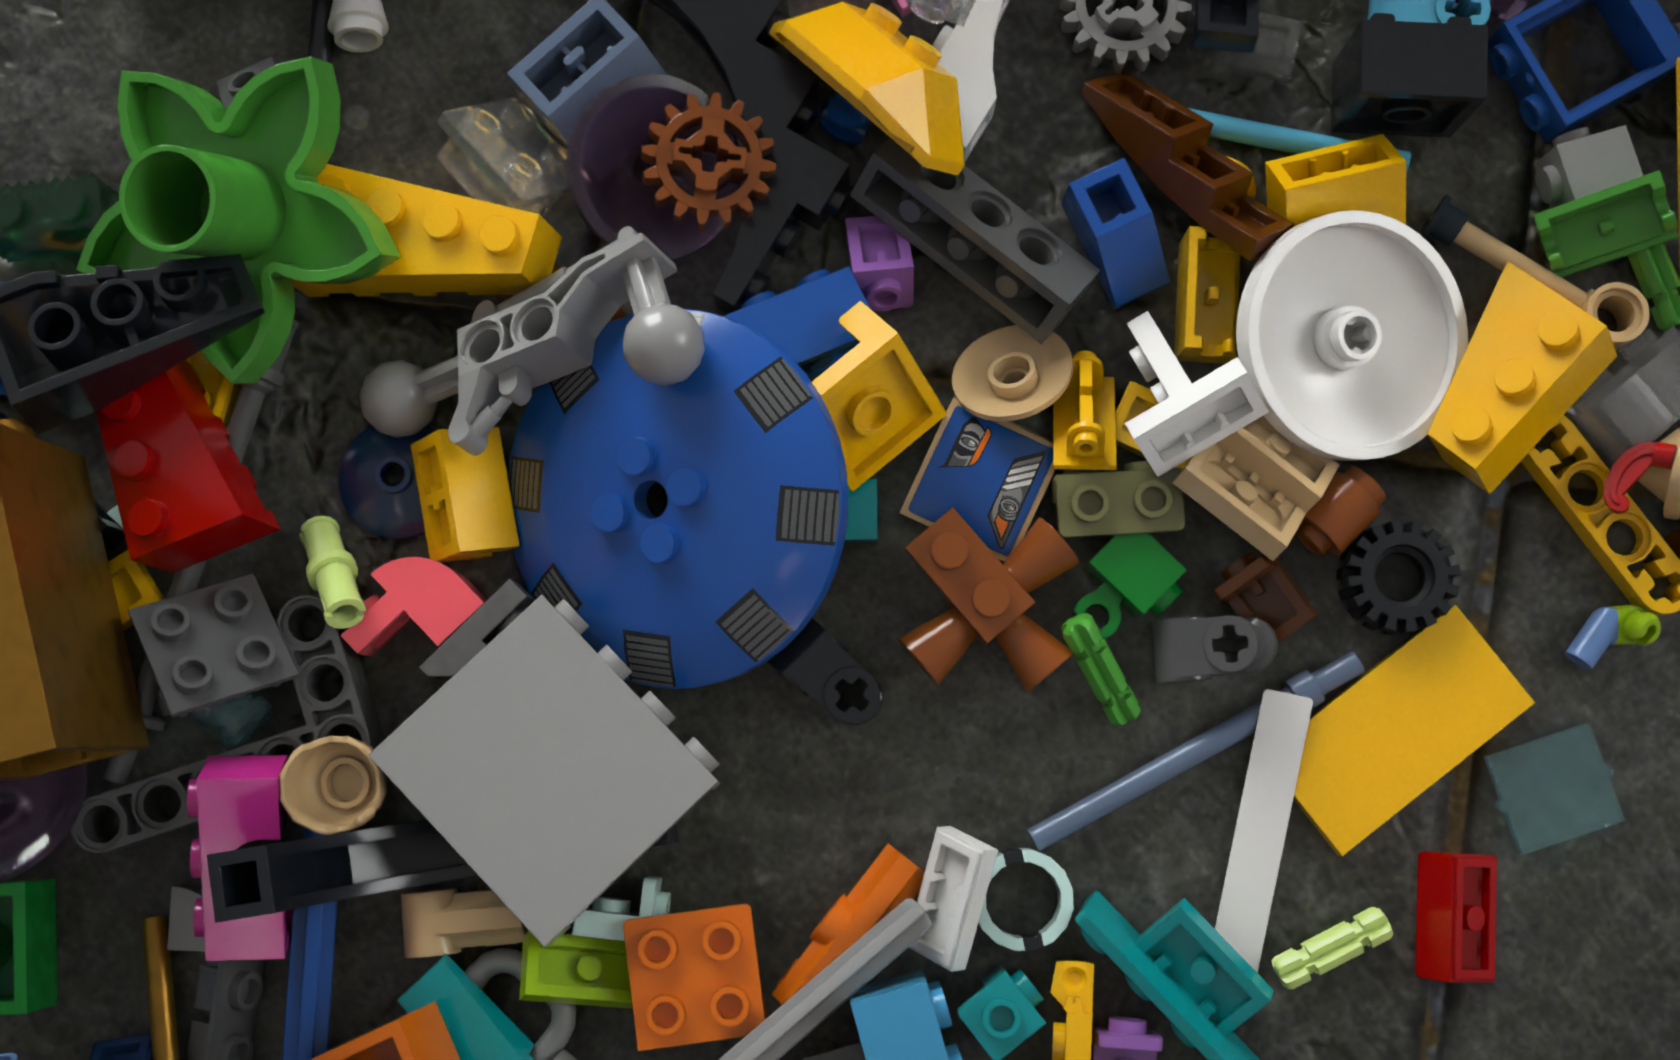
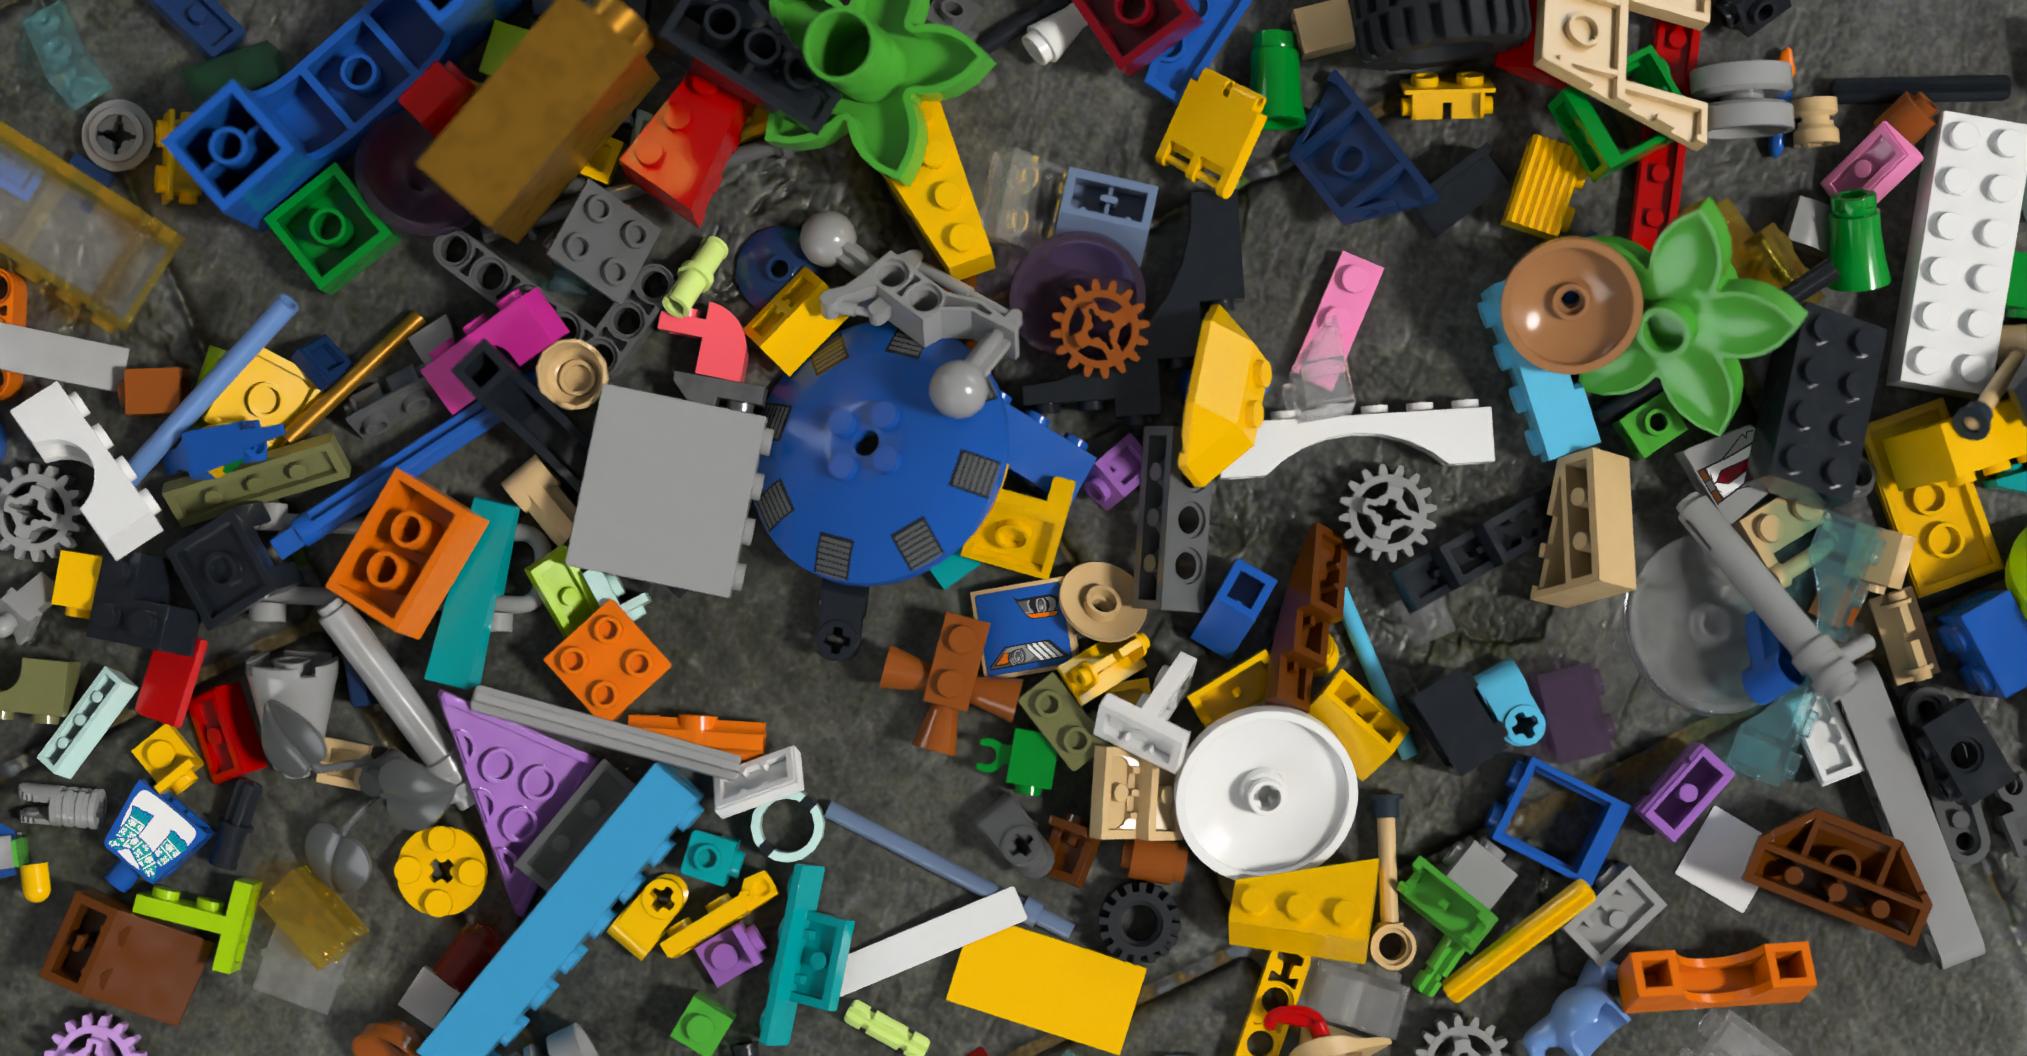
camera: 55 degrees right, 5 degrees up
(1100, 669) = (957, 779): bright green axle -> none

